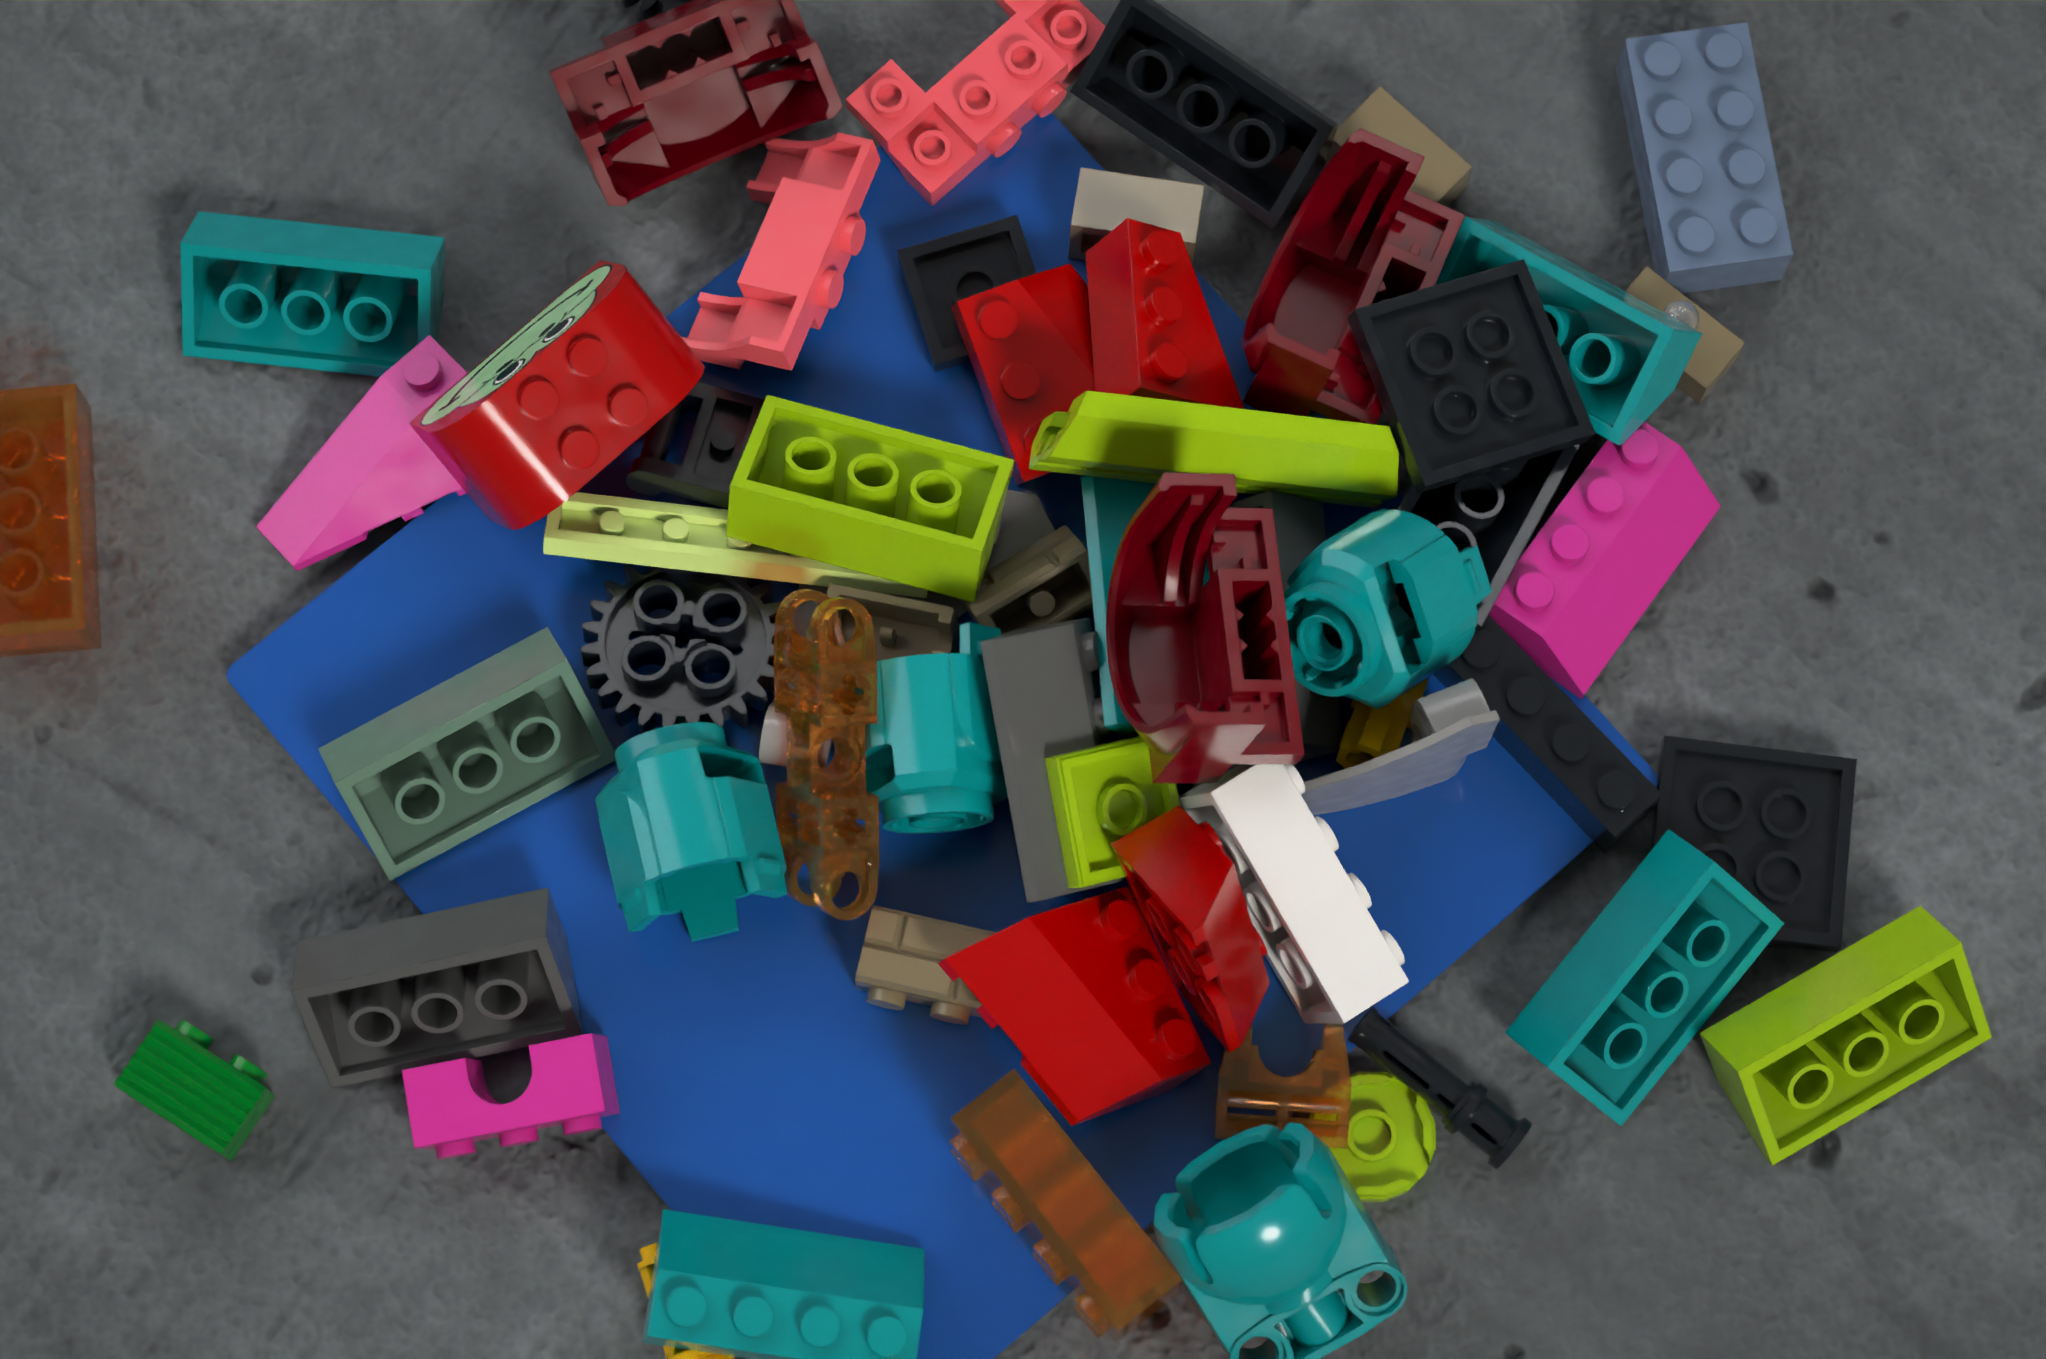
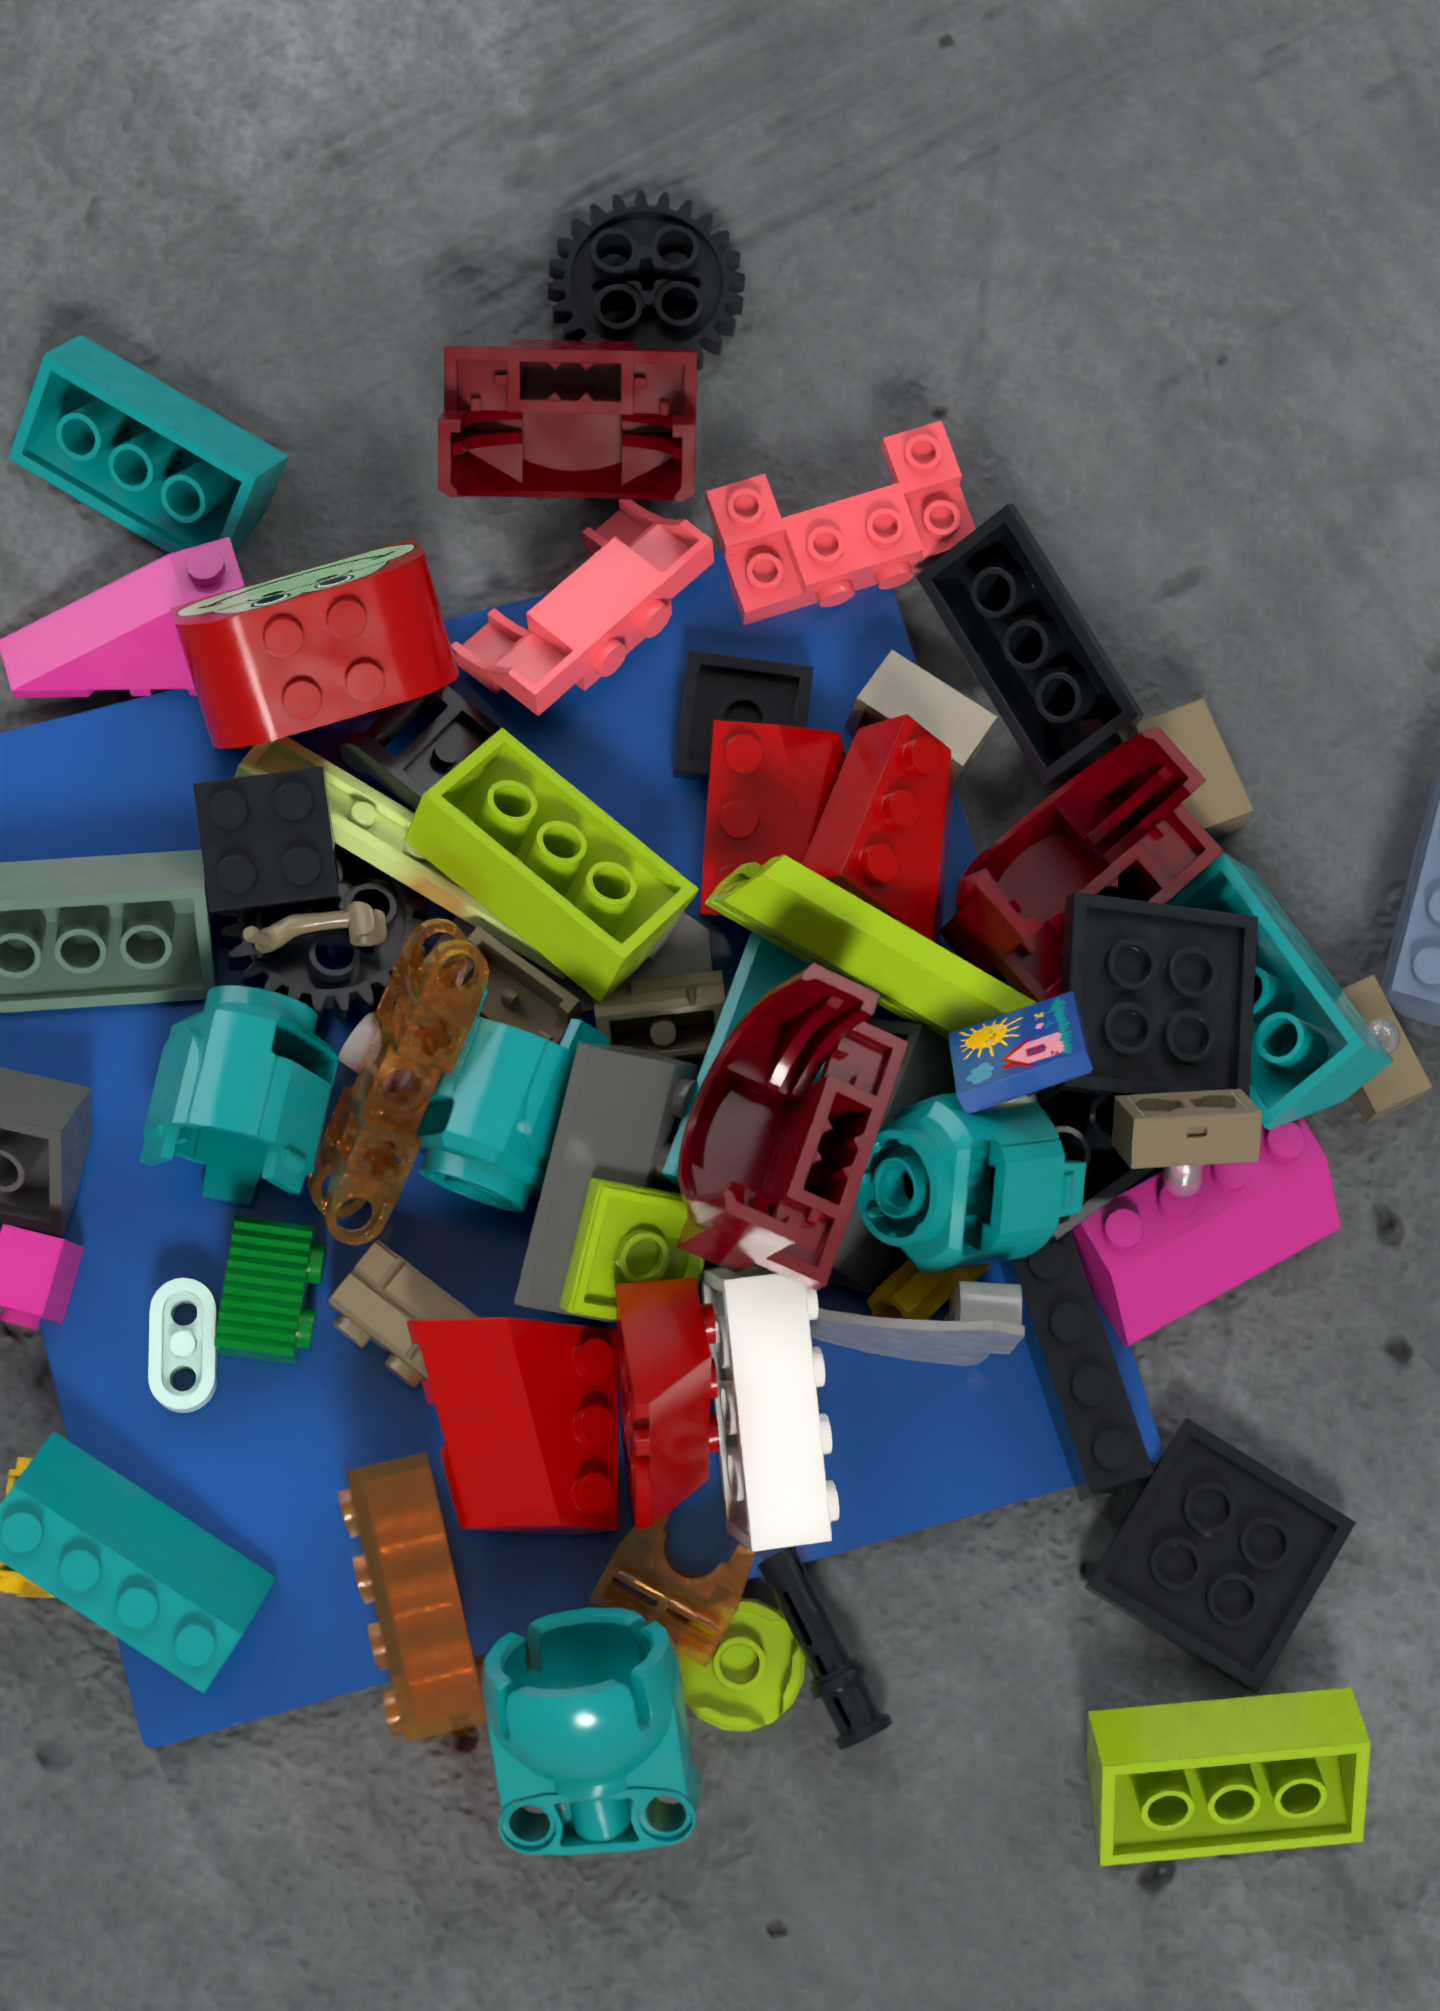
camera: 15 degrees right, 0 degrees up
(603, 592) = (267, 840): none -> black plate
(723, 625) = (364, 926): none -> dark tan piece
(742, 1082) = (182, 1347): none -> light aqua plate
(794, 998) = (268, 1290): none -> green brick
(1375, 473) = (1019, 1052): none -> blue tile
(1552, 479) = (1186, 1133): none -> dark tan piece
(1645, 977) = (1059, 1636): teal slope -> none

